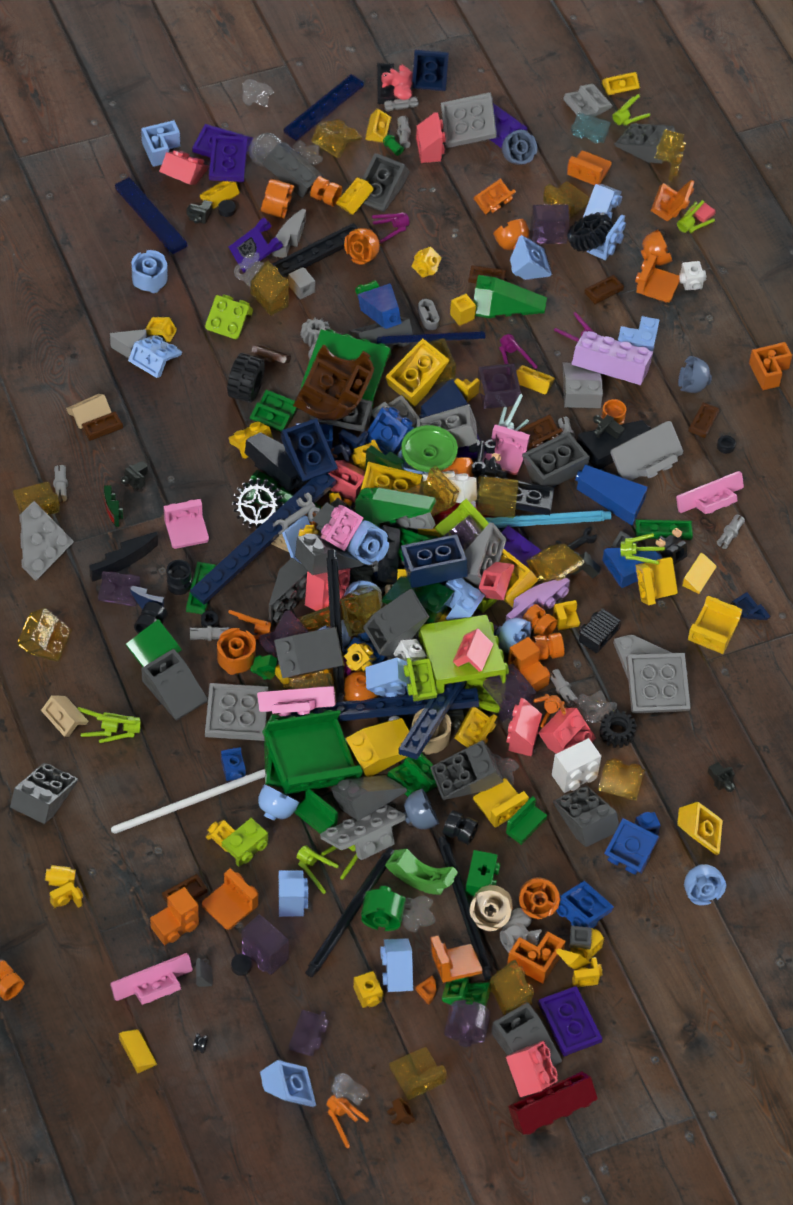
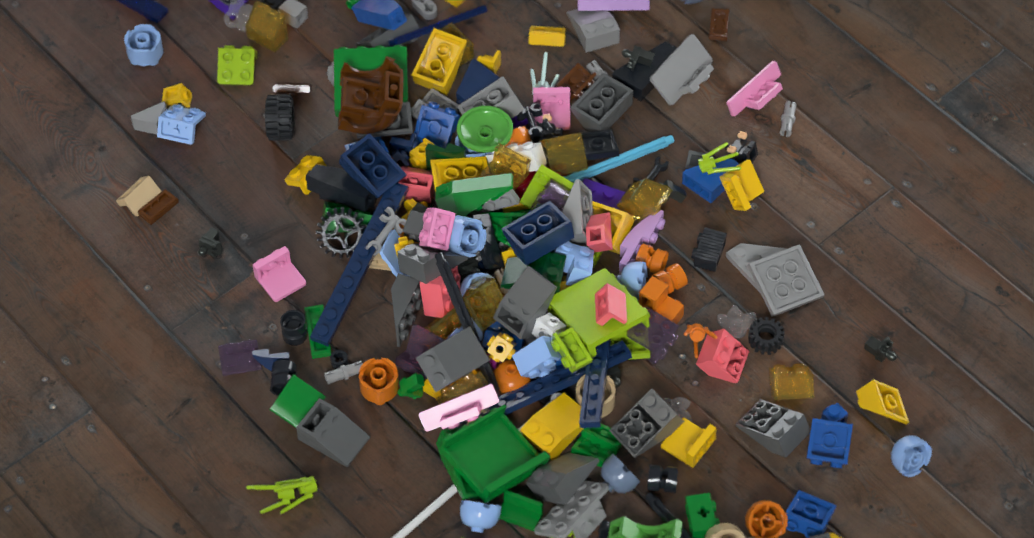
camera: 15 degrees left, 0 degrees up
(40, 540) = (145, 336): light grey plate -> none
(41, 494) = (124, 299): clear yellow bracket -> none
(44, 635) = (185, 426): clear yellow slope -> none
(60, 482) = (140, 274): light grey pin -> none
(63, 714) = (236, 498): tan panel -> none
(112, 505) = (200, 280): dark green slope -> none
(130, 552) = (234, 321): black slope -> none
(233, 764) = (420, 491): blue brick -> none
(234, 712) = (401, 440): light grey plate -> none
(261, 626) = (391, 349): orange plant -> none
(274, 411) = (317, 140): green slope -> none
(311, 330) = (323, 53): light grey gear -> none
(475, 727) = (635, 379): yellow bracket -> none
(498, 385) = (519, 51): clear purple brick -> none
(510, 345) = (512, 10): magenta plant -> none
(523, 728) = (681, 364): coral slope -> none
(525, 821) = (720, 453): green panel -> none
(563, 688) = (699, 314): light grey pin -> none
(566, 615) = (672, 244): yellow panel -> none
(576, 765) = (746, 383): white brick -> none
(612, 492) = (665, 117): blue slope -> none
(615, 409) = (636, 38): orange wheel -> none
(663, 528) = (713, 139): green tile -> none
(699, 573) = (777, 167): yellow slope -> none
(715, 625) = (812, 209): yellow panel -> none
(726, 444) = (748, 40): black tile -> none
(750, 609) = (835, 185): dark blue slope -> none

